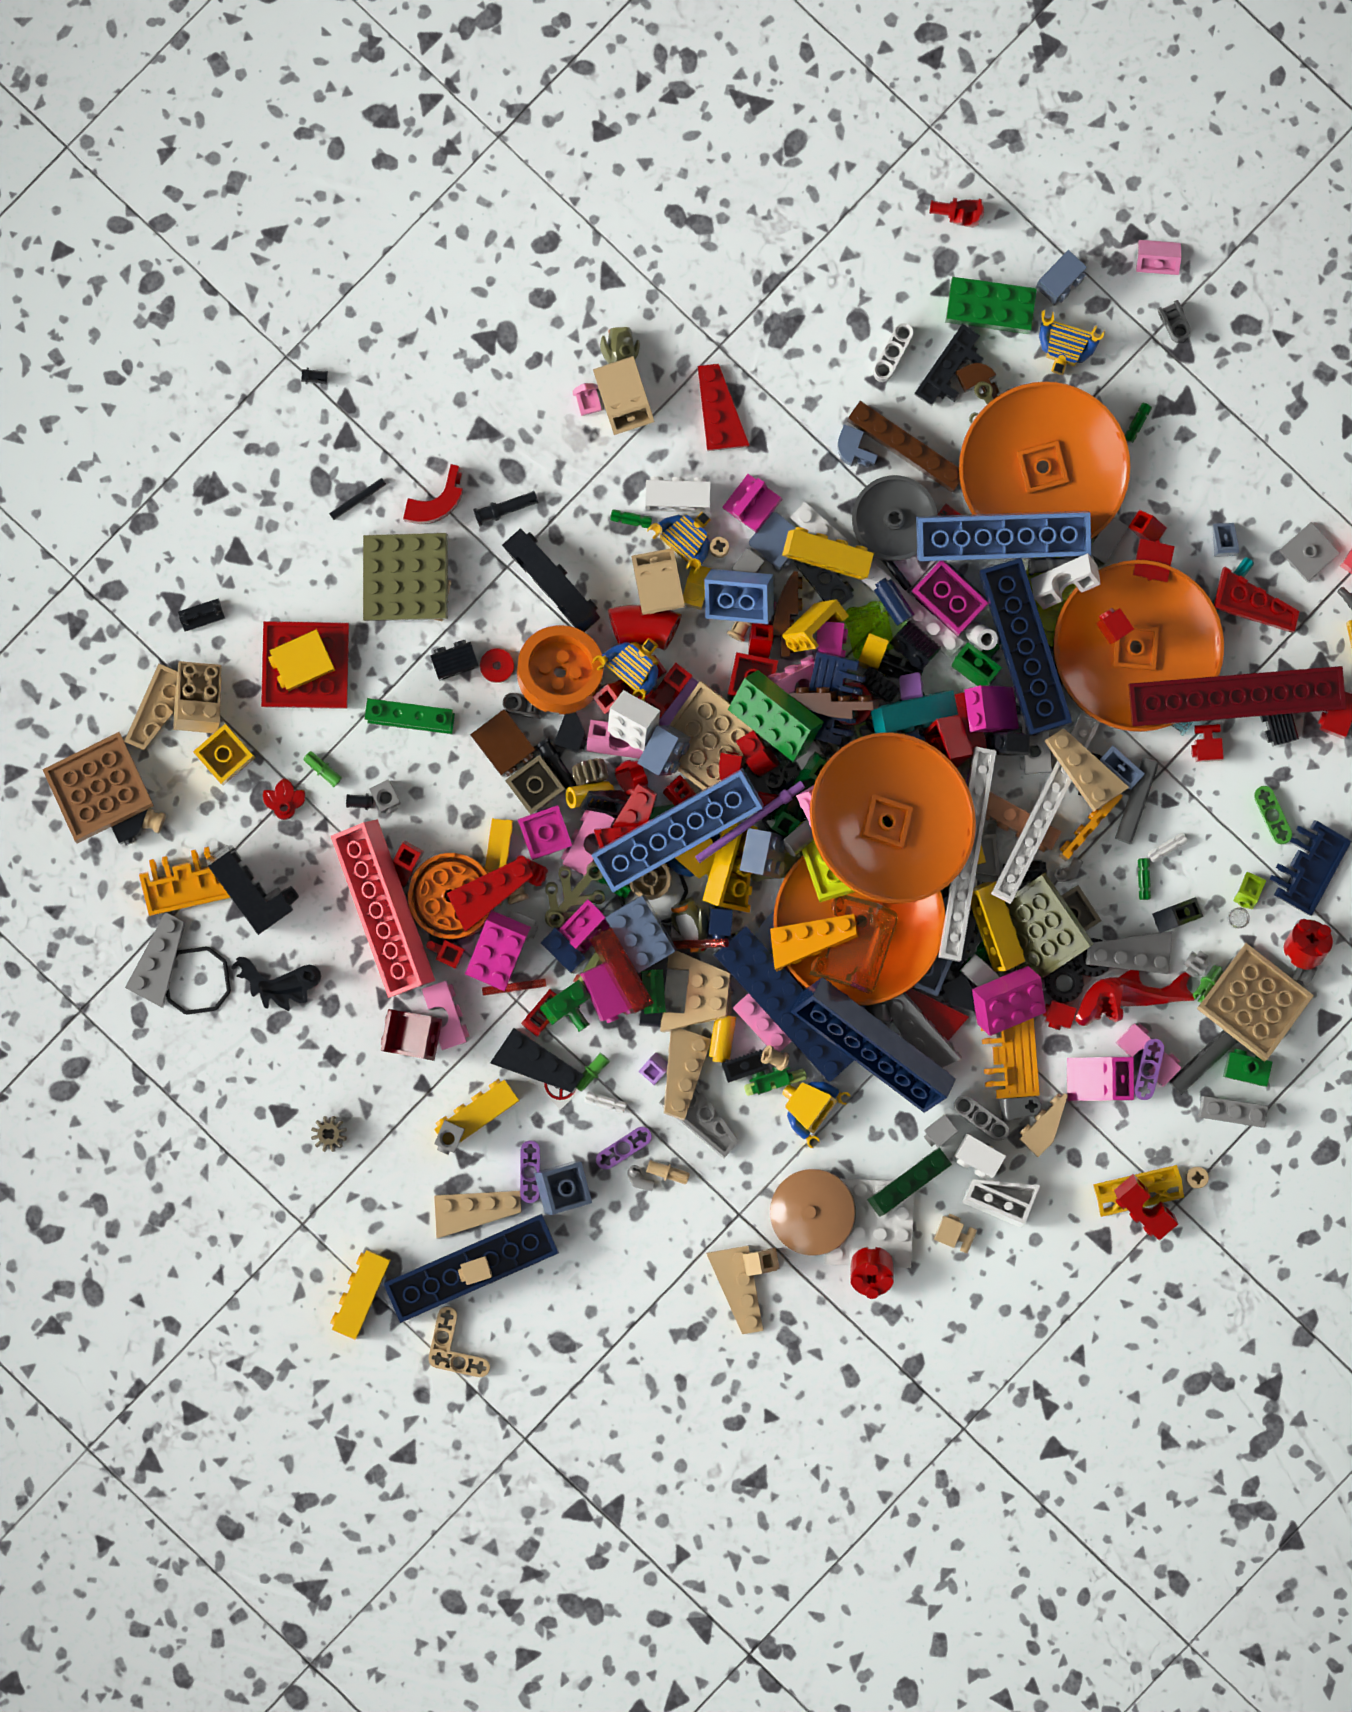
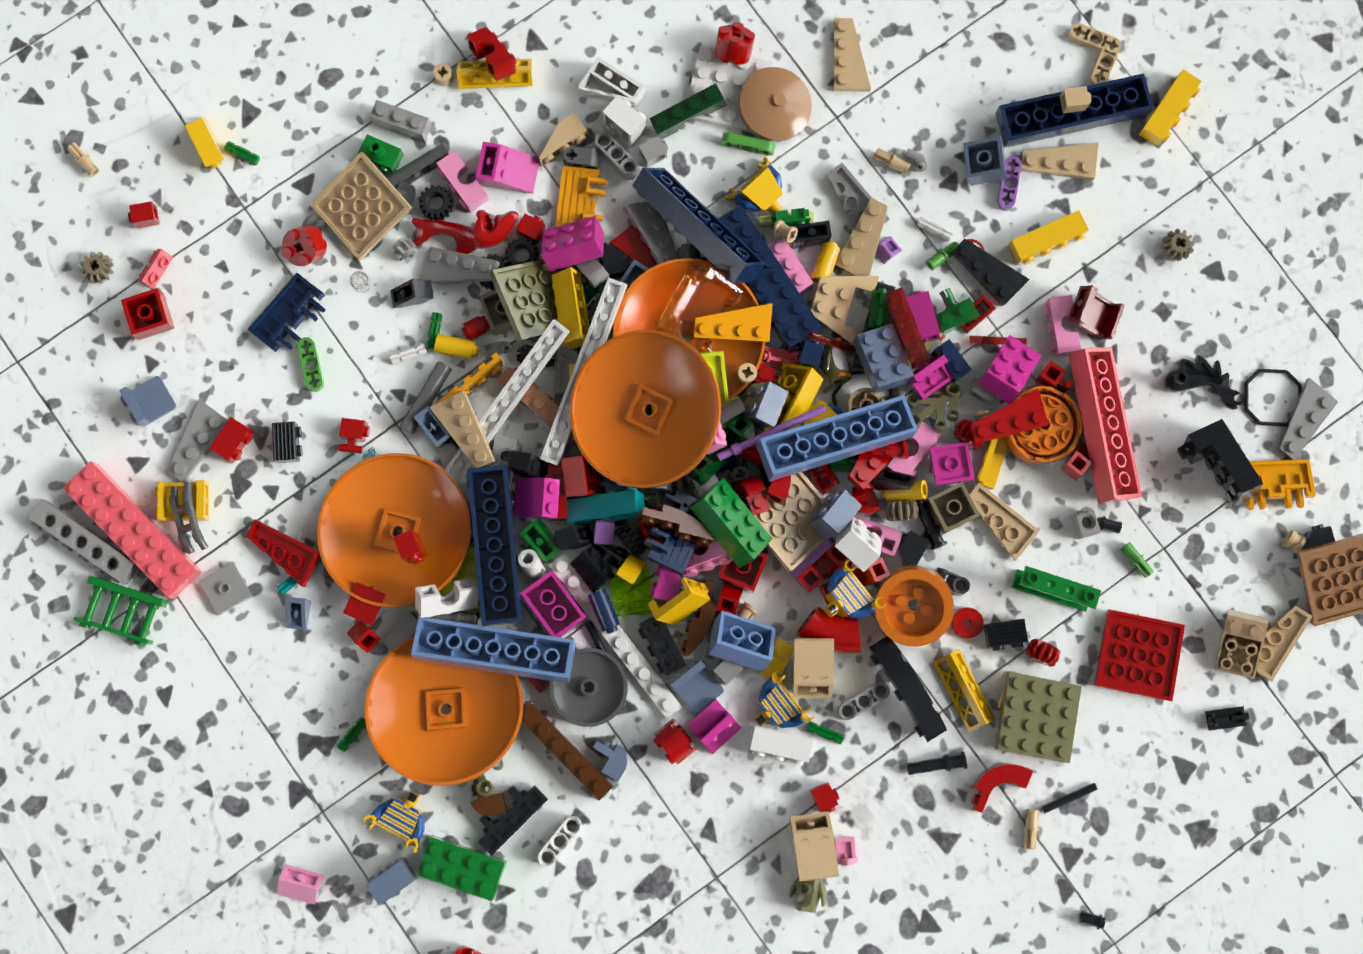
camera: 175 degrees left, 5 degrees down
(224, 754) = (1225, 587): yellow brick -> none
(284, 796) = (1174, 542): red plate -> none
(301, 661) = (1145, 657): yellow brick -> none
(393, 458) = (1031, 829): none -> tan axle
(411, 646) = (1043, 652): none -> red gear
(455, 1130) = (1075, 224): light grey brick -> none
(474, 782) = (1005, 523): none -> tan wing
(486, 593) = (967, 688): none -> yellow fence
(503, 743) = (973, 551): reddish brown brick -> none
(600, 549) = (873, 699): none -> light grey beam
(607, 1152) = (939, 188): medium lavender beam -> none
(619, 449) = (825, 797): none -> red brick
(716, 553) = (746, 687): tan bush -> none
(720, 416) = (728, 811): red wing -> none
(757, 919) = (776, 357): none -> coral hinge
(761, 1261) = (827, 68): tan brick -> none
(765, 893) = (765, 374): none -> red brick
(791, 477) = (674, 742): none -> red brick
(792, 888) = (745, 376): none -> tan wheel
(828, 554) = (655, 663): yellow brick -> none
(834, 1160) = (748, 144): none -> bright green beam
(942, 674) = (573, 537): none -> black brick
(950, 1231) = (660, 67): tan brick -> none
(1099, 890) = (475, 327): none -> red brick
(1115, 864) = (456, 347): none -> yellow brick
(1151, 1086) = (464, 151): medium lavender beam -> none
(1172, 318) = (298, 822): dark grey piece -> none
(1182, 1015) = (436, 192): none -> black tyre
(1208, 982) = (398, 230): bright green axle -> none
(1237, 696) = (316, 467): dark red plate -> none
(1249, 890) = (344, 303): lime bracket -> none

